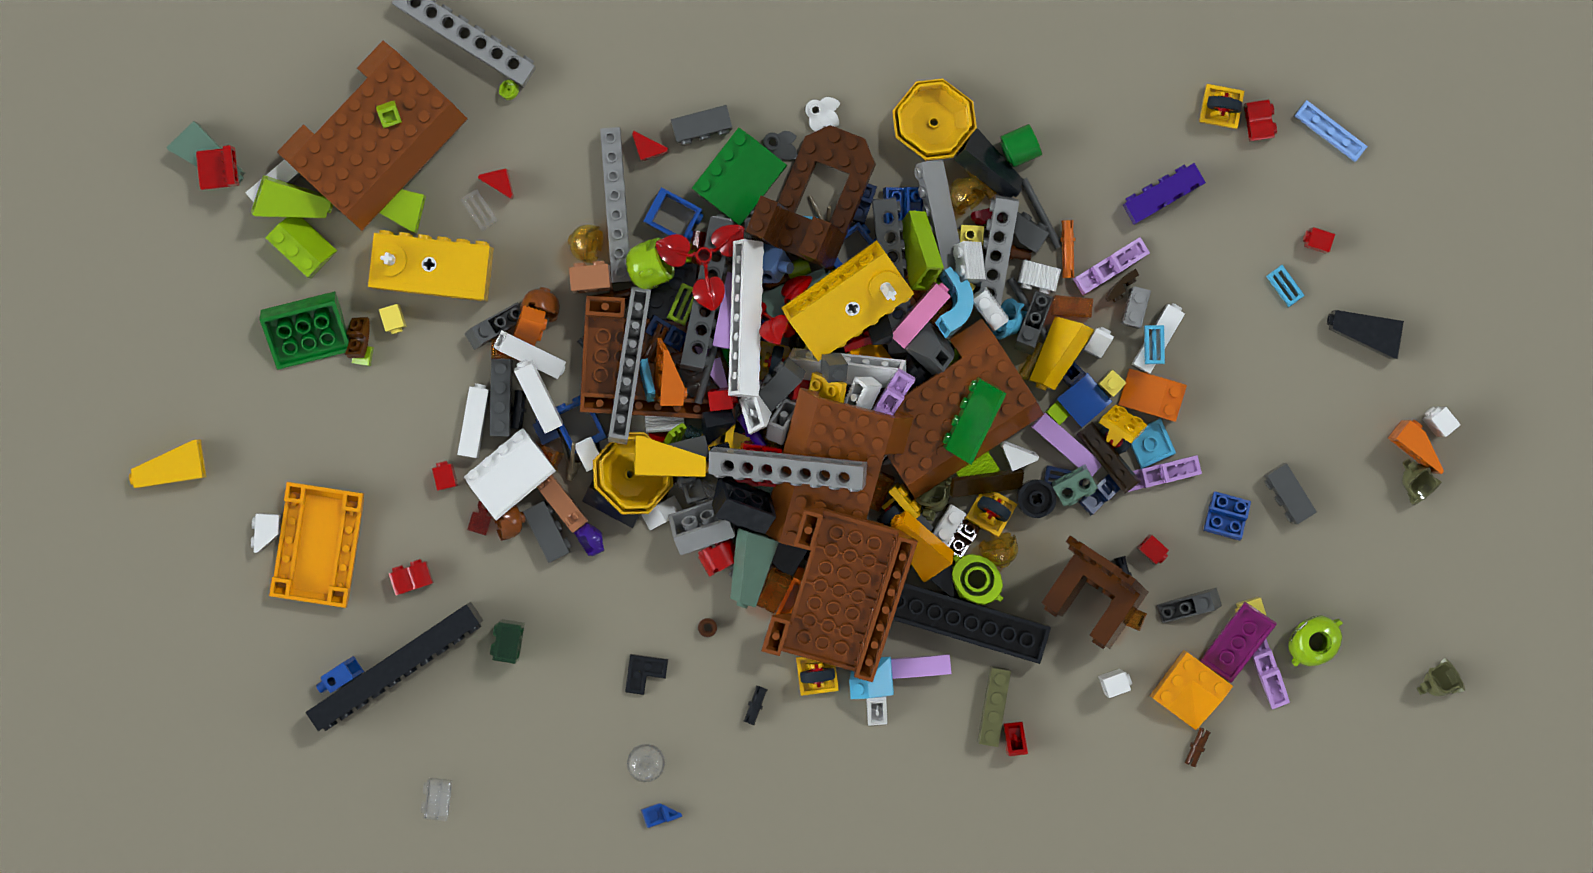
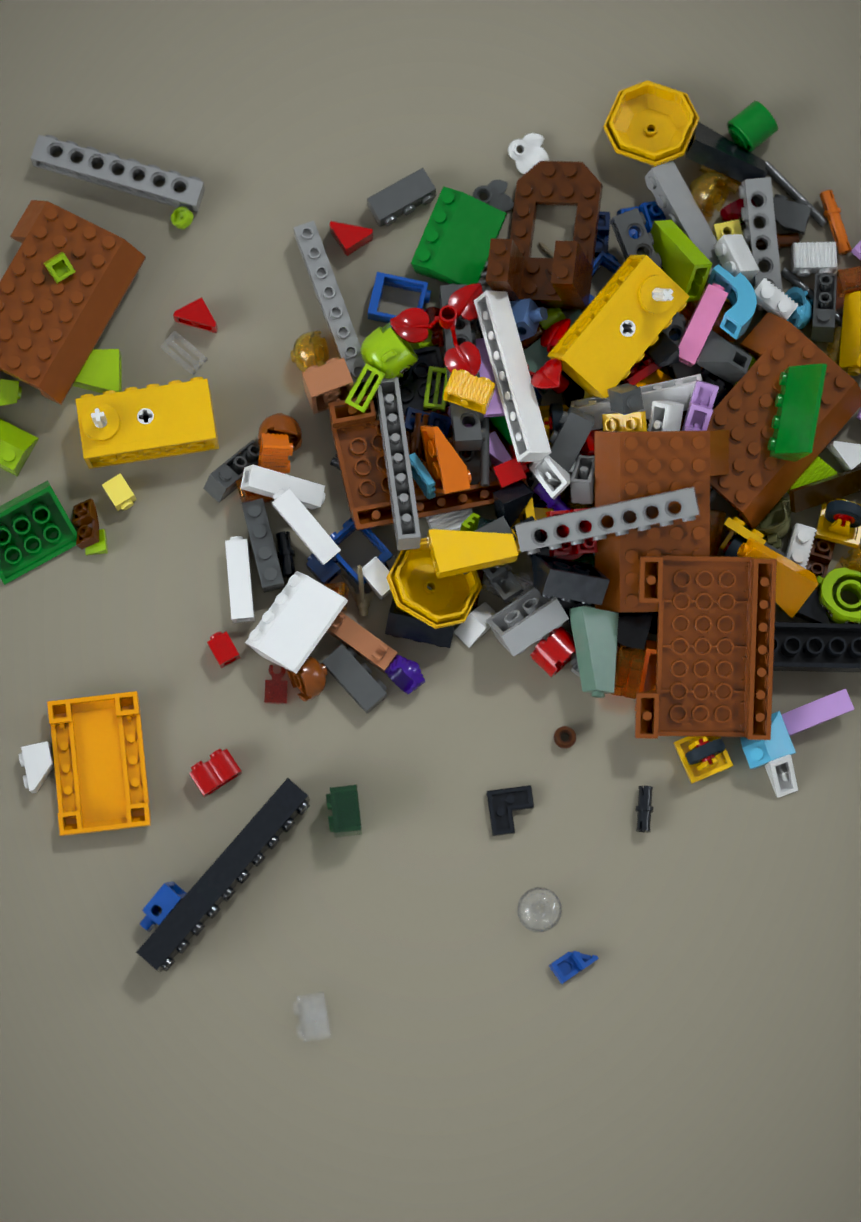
camera: 15 degrees left, 10 degrees down
(631, 281) = (356, 404): none -> lime tile
(705, 323) = (469, 391): none -> yellow brick

